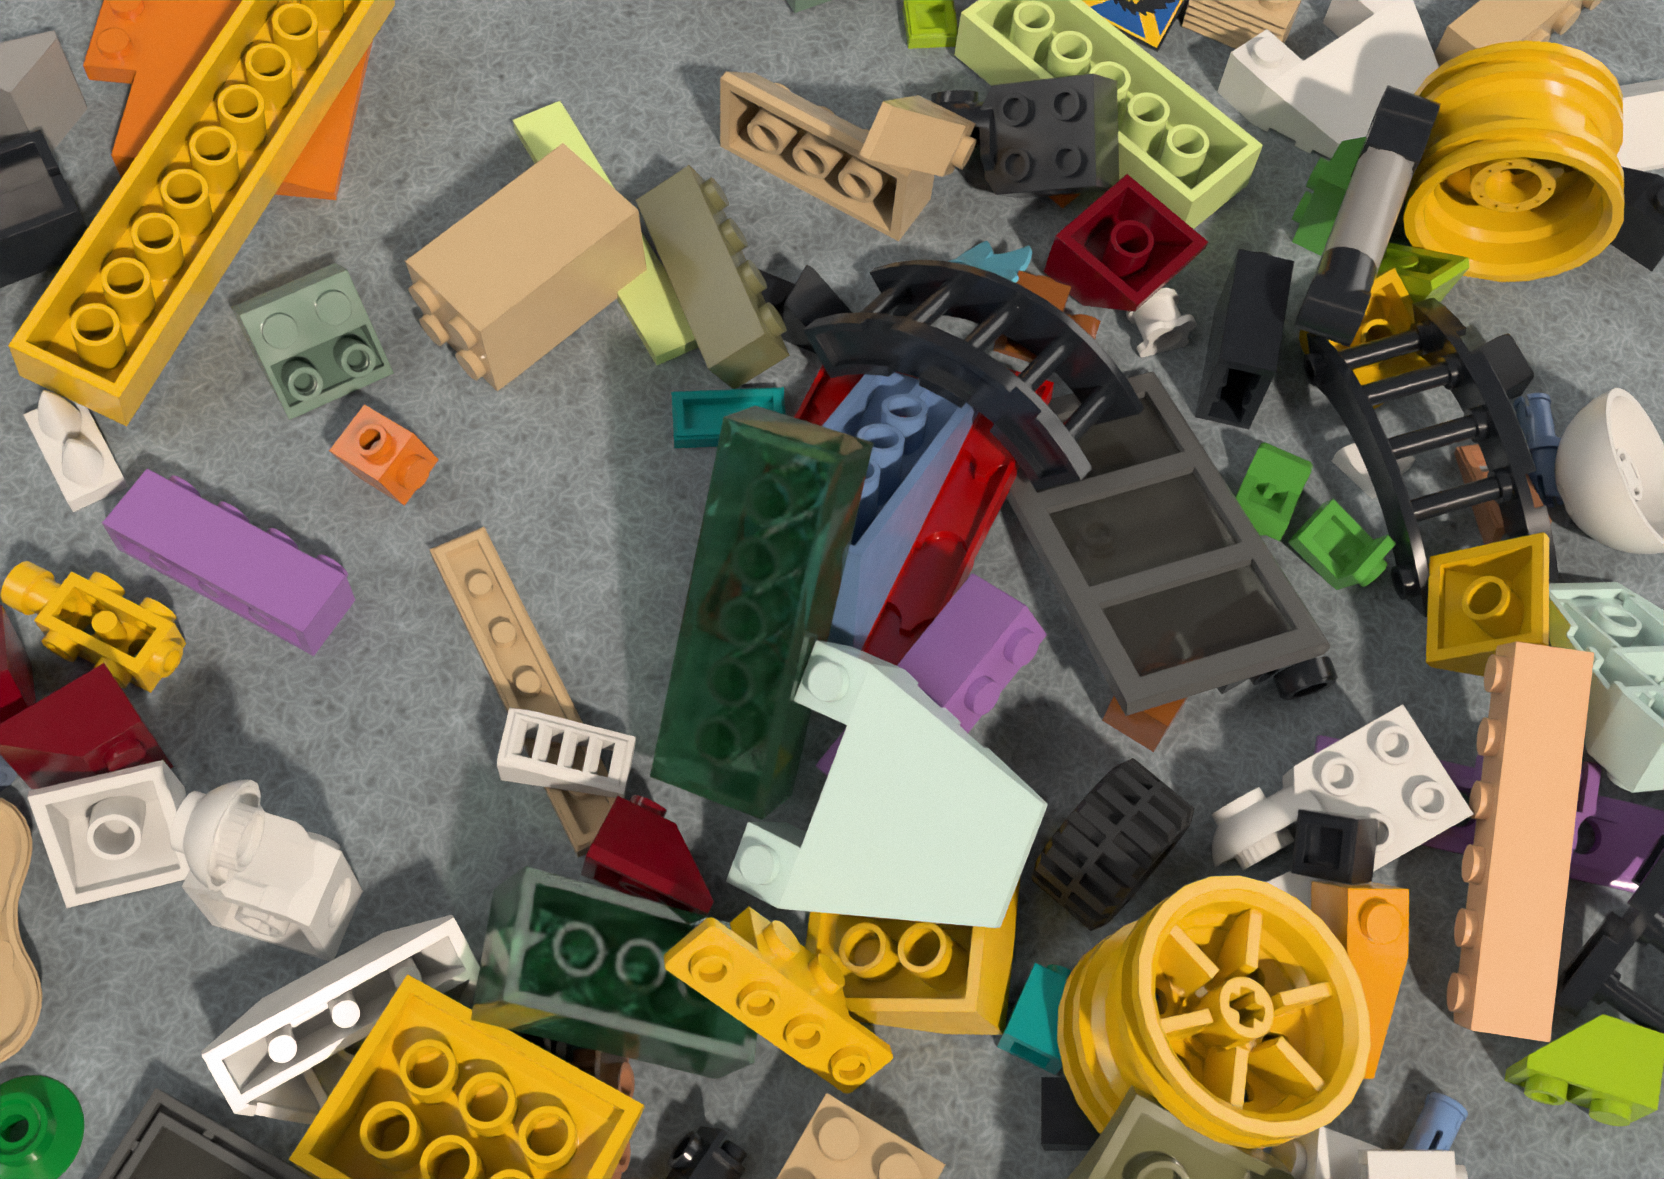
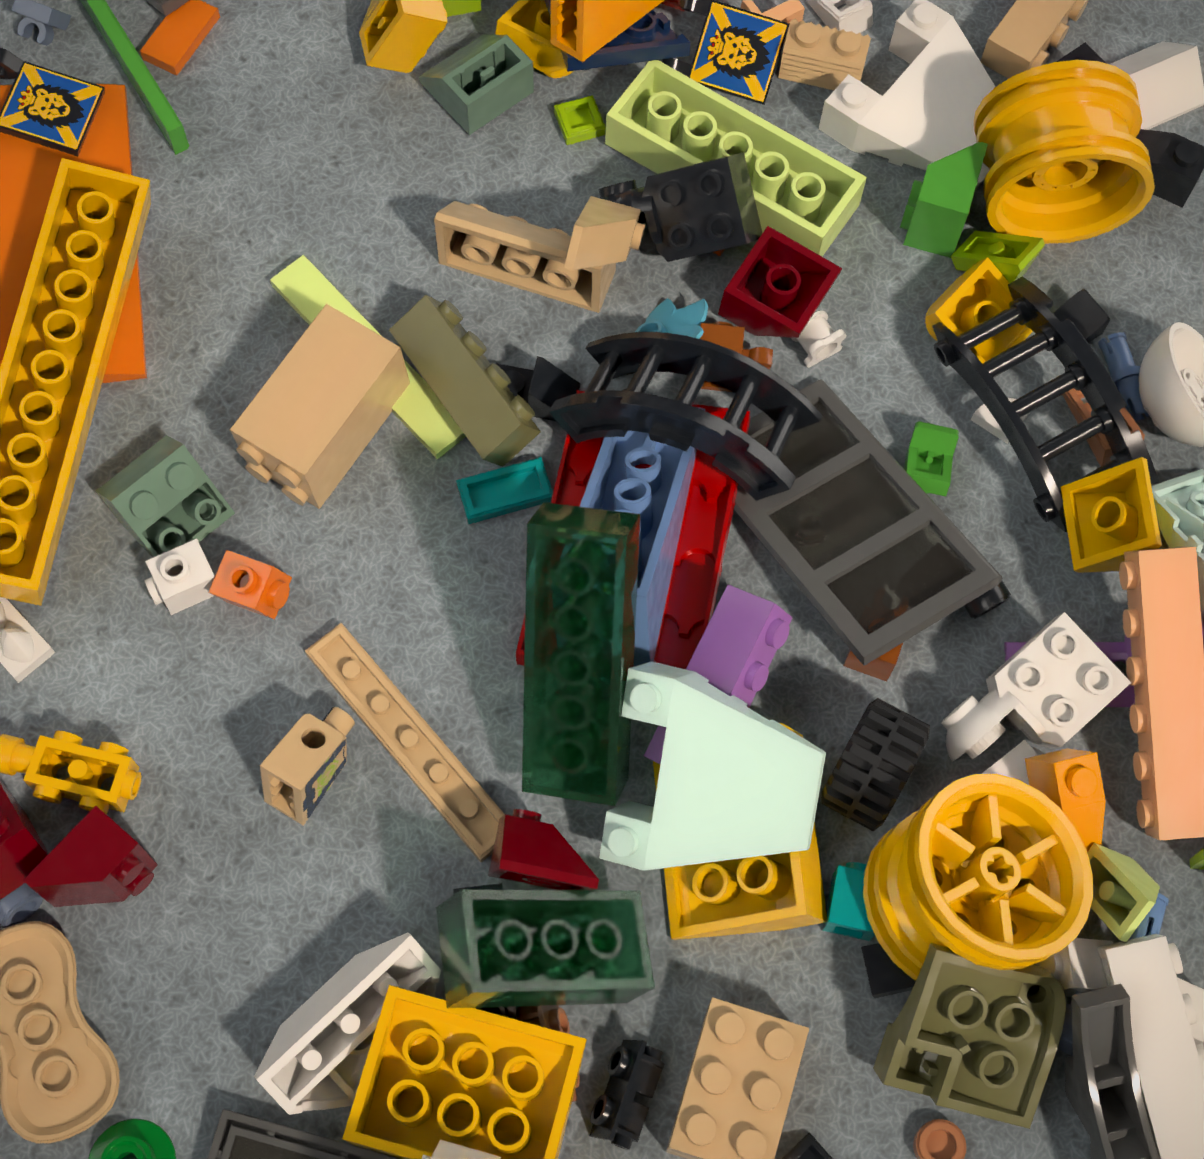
camera: 10 degrees left, 5 degrees up
(111, 832) = (135, 928): white slope -> none
(231, 560) = (155, 695): medium lavender brick -> none
(264, 871) = (262, 934): white brick -> none
(302, 428) = (180, 577): none -> white brick
(387, 681) = (306, 763): none -> tan torso
(548, 728) = (436, 772): white slope -> none
(781, 994) = (663, 933): yellow bracket -> none
(1245, 339) = (886, 340): black brick -> none
(1335, 846) = (1037, 730): black slope -> none
(1341, 547) = (992, 490): bright green bracket -> none
(1367, 216) = (965, 189): black piece -> none
(1403, 1081) = (1120, 890): none -> yellowish green slope

